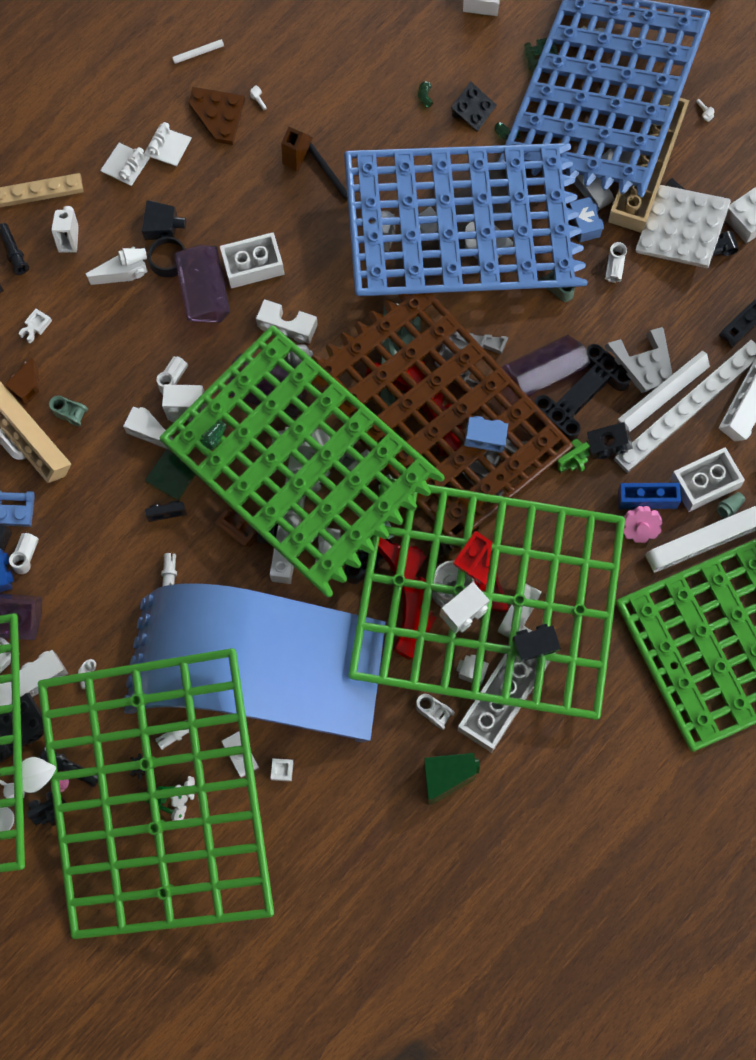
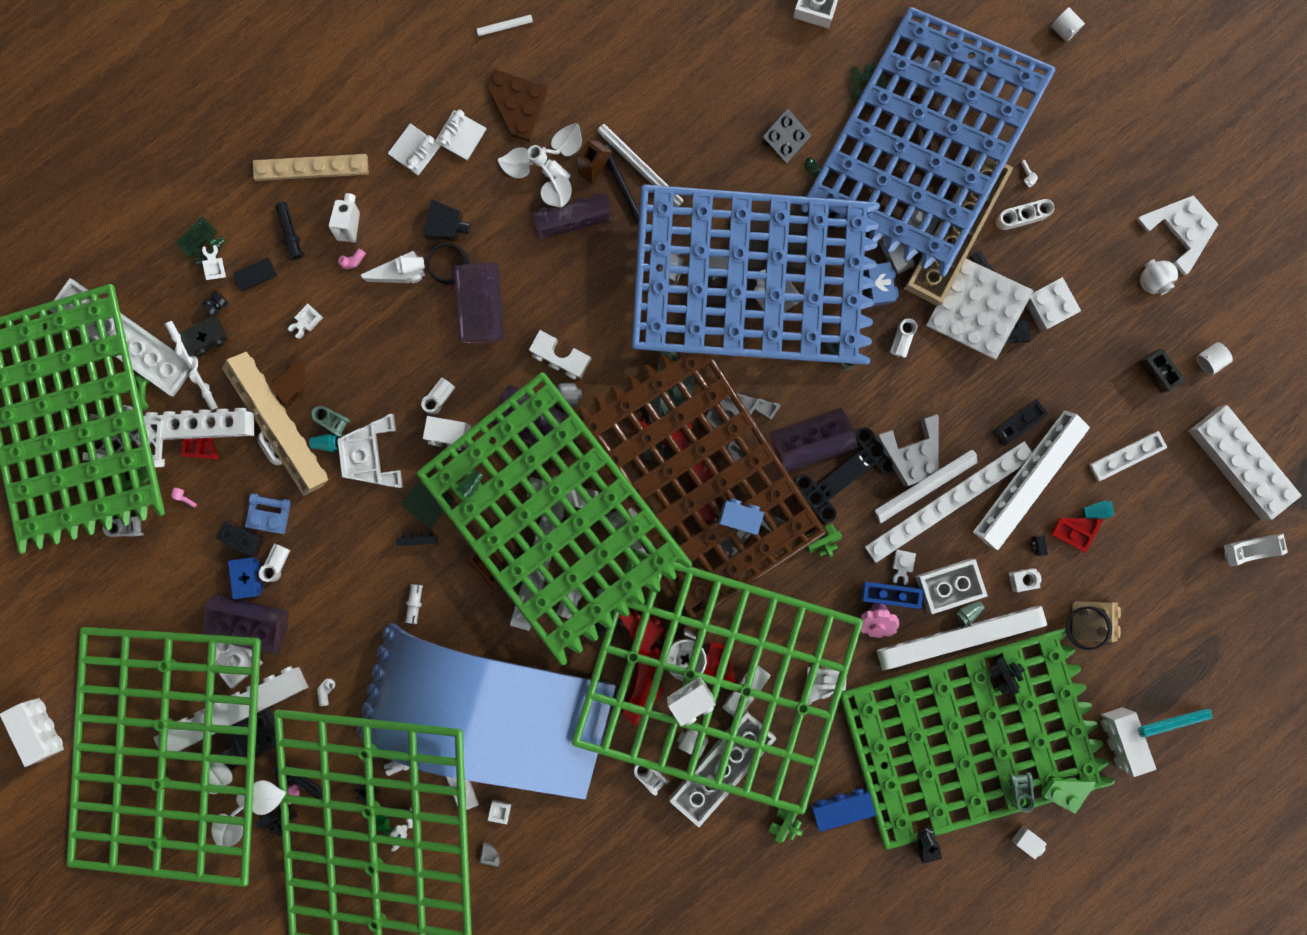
camera: 10 degrees right, 15 degrees up
(65, 432) = (325, 442): none -> teal cone
(75, 268) = (352, 262): none -> bright pink arm
(101, 440) = (361, 457): none -> white wing
(144, 426) = (407, 449): white slope -> none
(225, 161) = (517, 162): none -> white plant
(252, 260) = (532, 283): white brick -> none
(255, 93) = (559, 84): white hand -> none
(261, 164) = (555, 170): none -> white cone
(276, 819) = (489, 855): none -> light grey tile
(283, 199) = (573, 216): none -> clear purple slope
(327, 142) = (634, 160): none -> white axle
(423, 91) = (736, 110): clear green arm -> none
(448, 774) = (654, 843): dark green slope -> none
(475, 558) = (710, 646): red wing -> none
(535, 643) = (755, 740): black brick -> none
(587, 741) = (781, 832): none -> bright green hips
(597, 592) = (823, 684): none -> white wing
(599, 438) = (851, 531): black brick -> none
(639, 715) = (843, 809): none -> blue brick
(656, 468) = (903, 562): none -> white plate
(714, 136) = (1031, 209): none -> white beam
(736, 740) = (927, 846): none -> black piece

